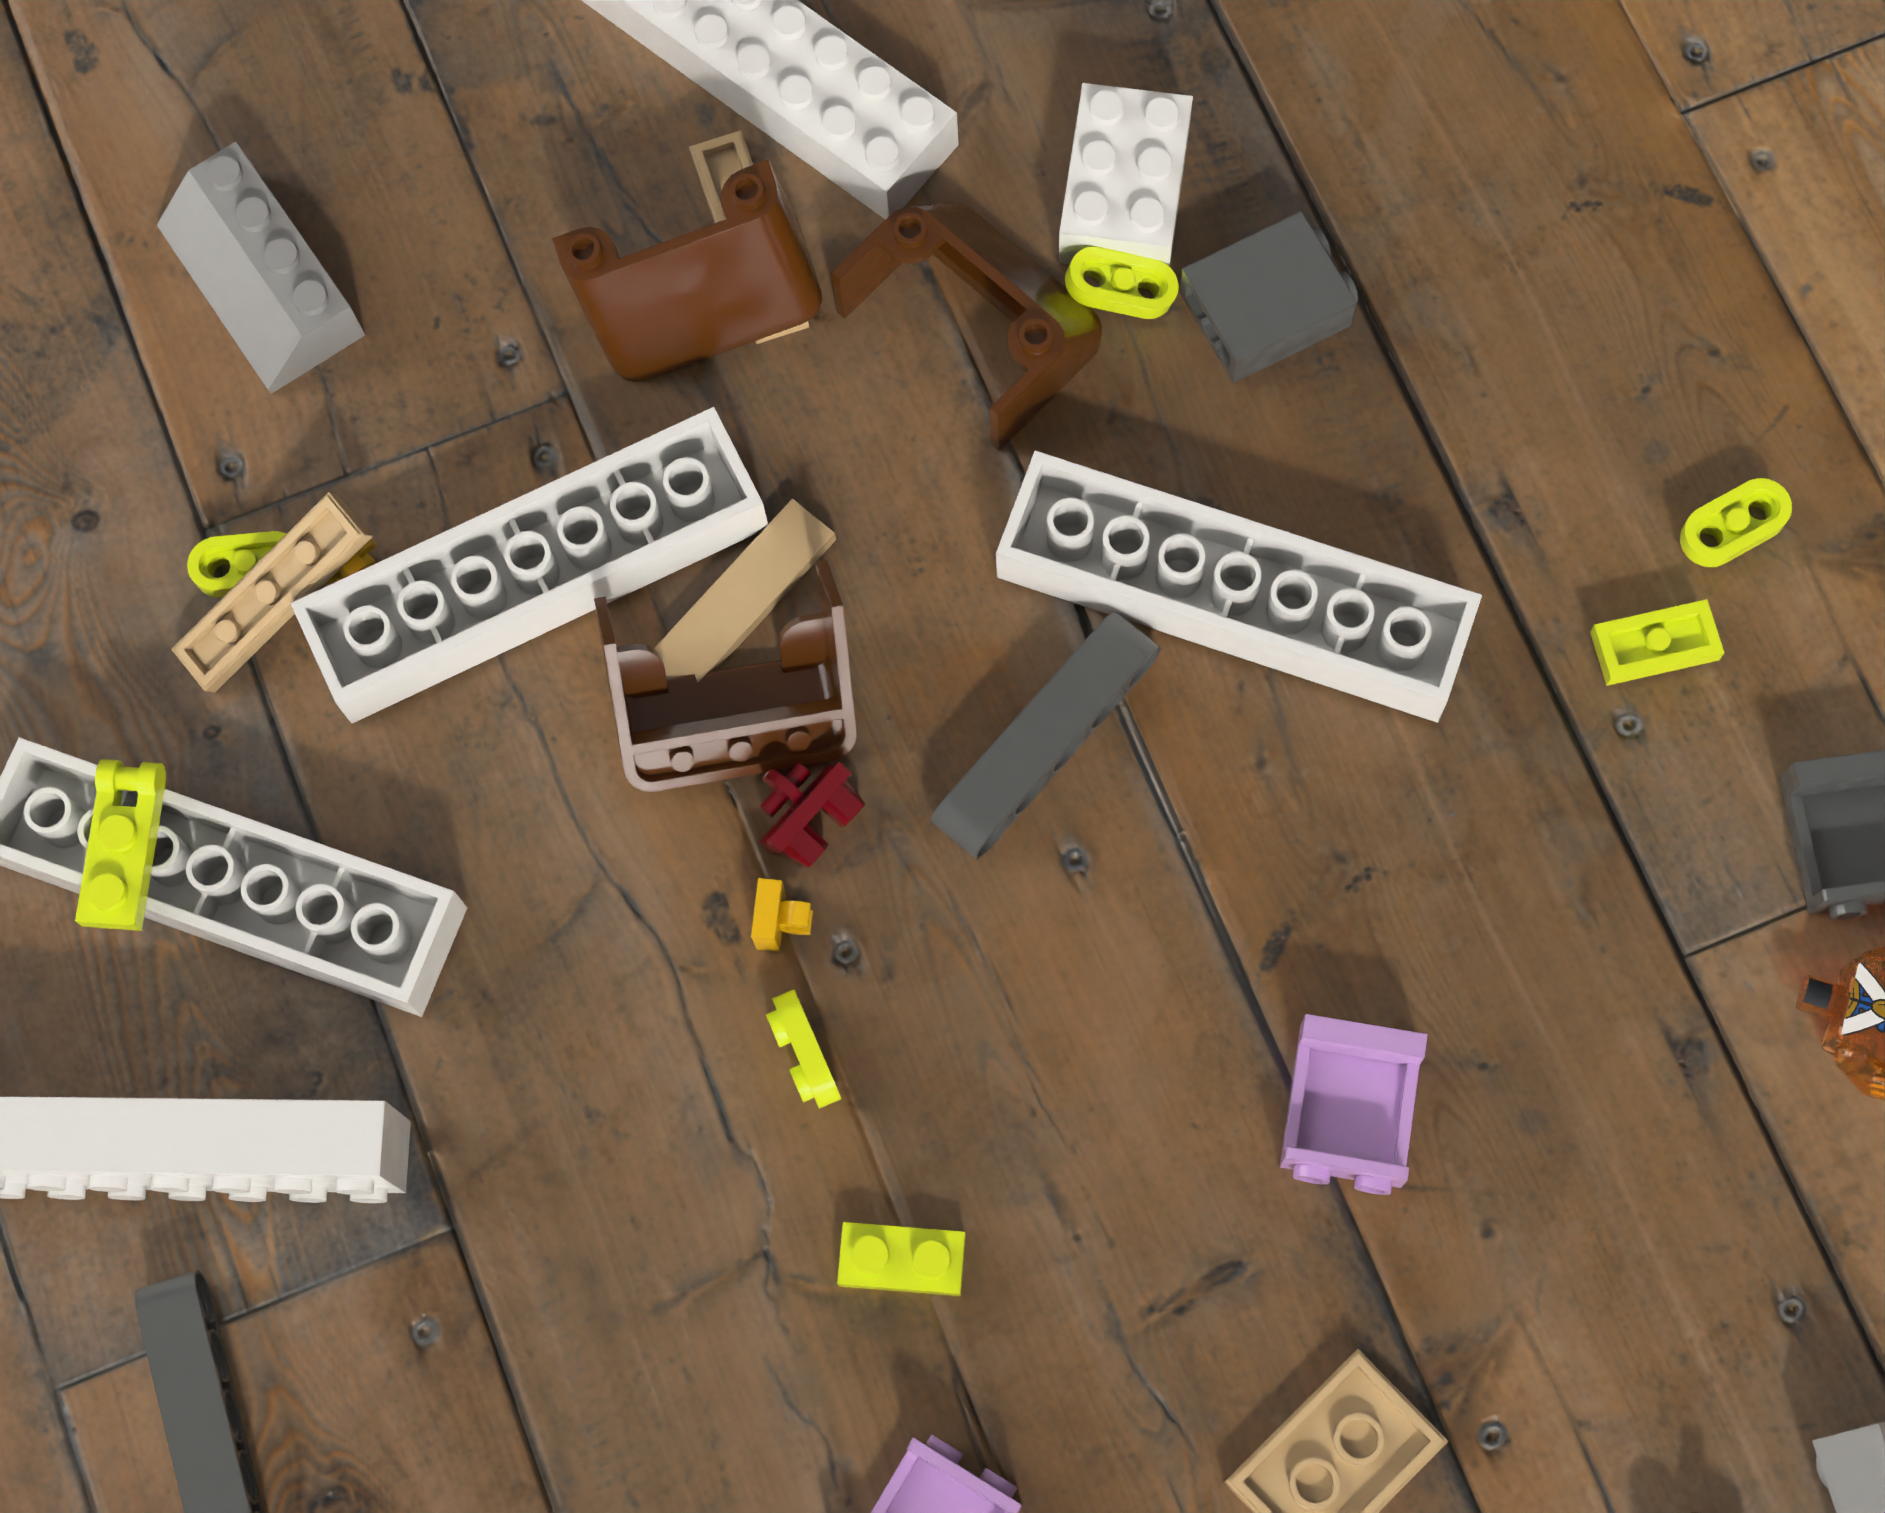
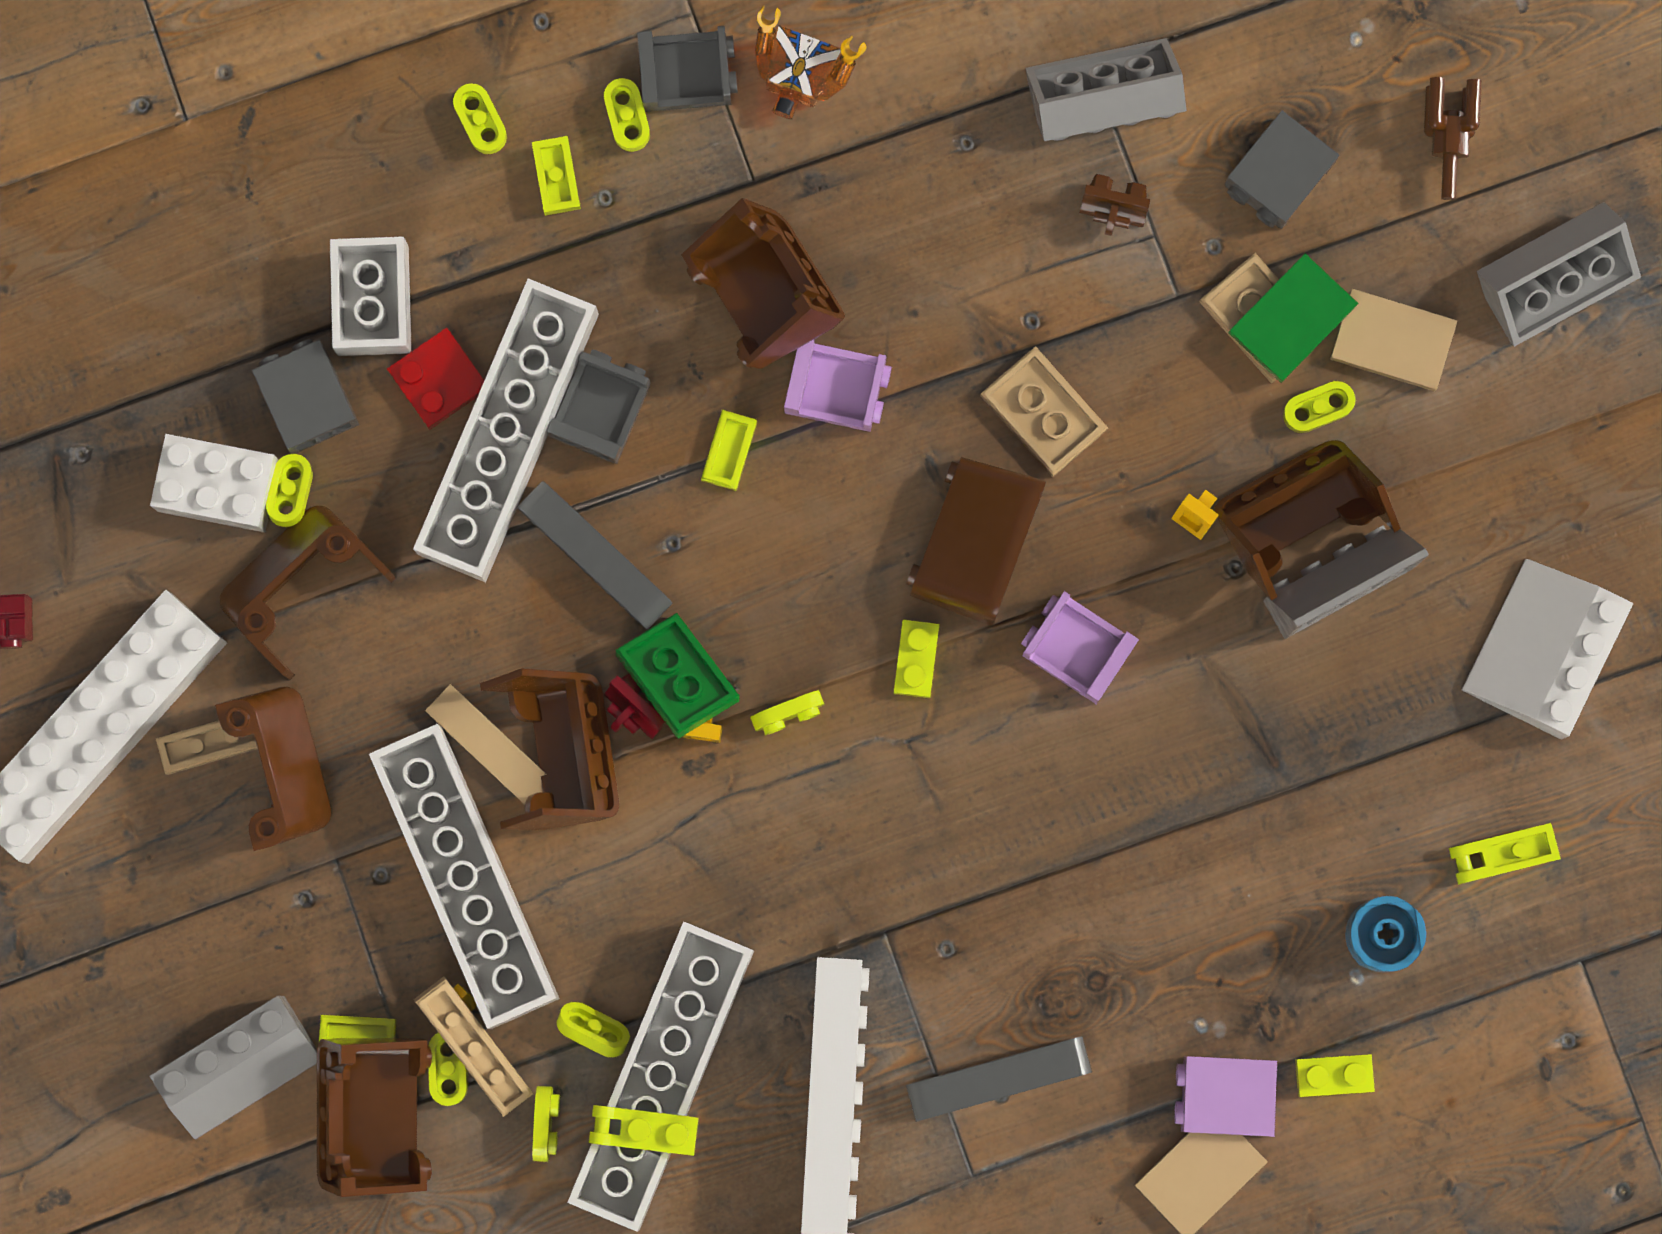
camera: 90 degrees left, 10 degrees up
(168, 457) = (370, 1115): none -> reddish brown windscreen
(176, 707) = (544, 1140): none -> neon yellow plate
(299, 775) = (593, 1029): none -> neon yellow plate
(302, 436) = (356, 1027): none -> neon yellow tile
(854, 869) = (677, 675): none -> green tile
(1105, 1350) = (976, 539): none -> reddish brown windscreen
(1231, 937) = (729, 450): none -> neon yellow tile
(1286, 731) = (600, 406): none -> dark grey panel
(1314, 484) = (437, 378): none -> red plate
(1433, 374) = (370, 296): none -> white brick
(1516, 974) = (763, 282): none -> reddish brown windscreen
(1766, 744) = (626, 116): none -> neon yellow plate

